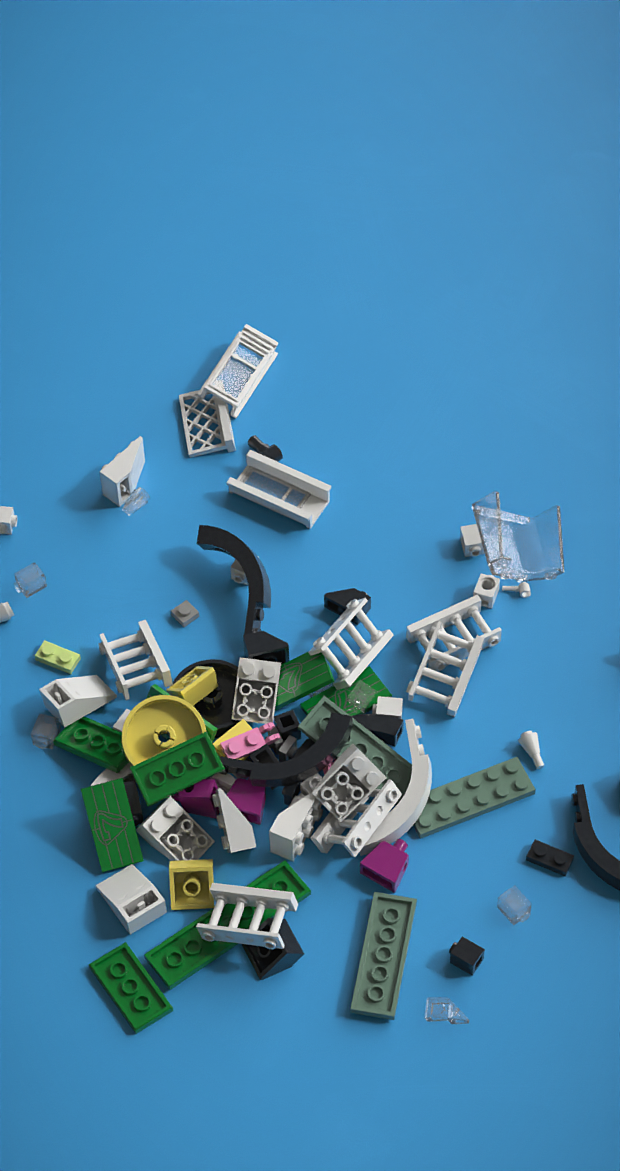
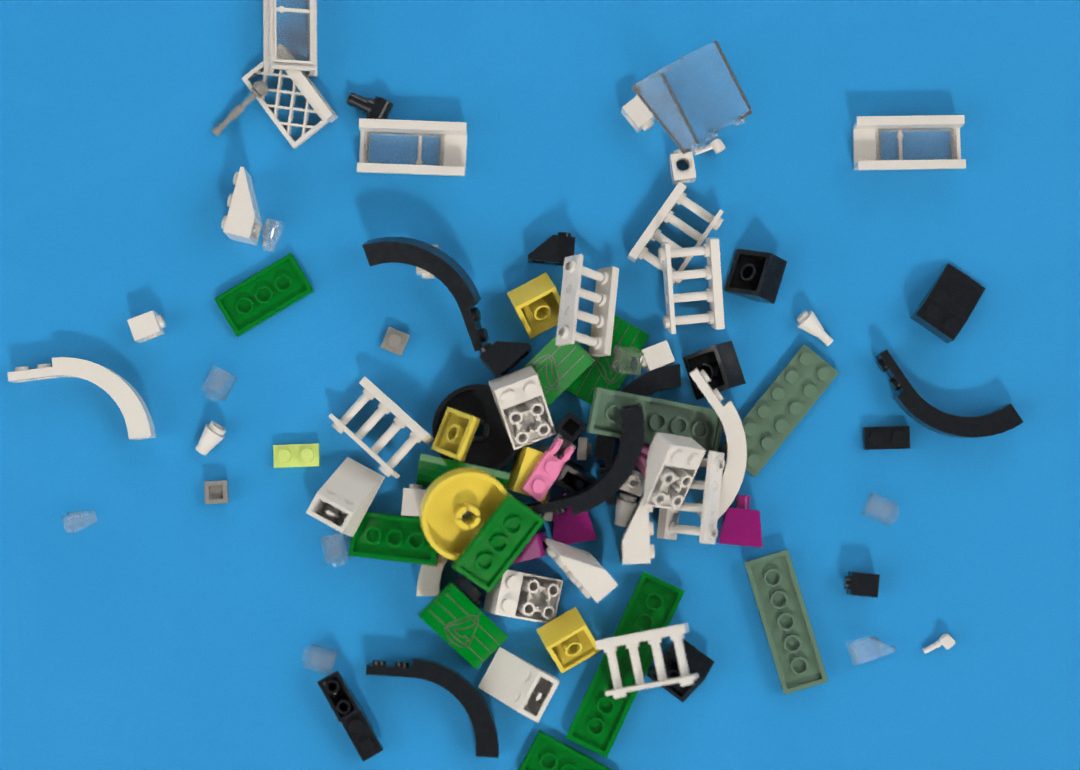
camera: 30 degrees left, 30 degrees up
(59, 849) = (460, 687): none -> black arch
(104, 540) = (264, 295): none -> green tile
(187, 405) = (259, 89): none -> light grey piece
(308, 629) = (536, 304): none -> light yellow slope
(437, 739) = (720, 365): none -> black slope
(505, 690) = (756, 275): none -> black slope
(516, 1035) = (945, 640): none -> white hand

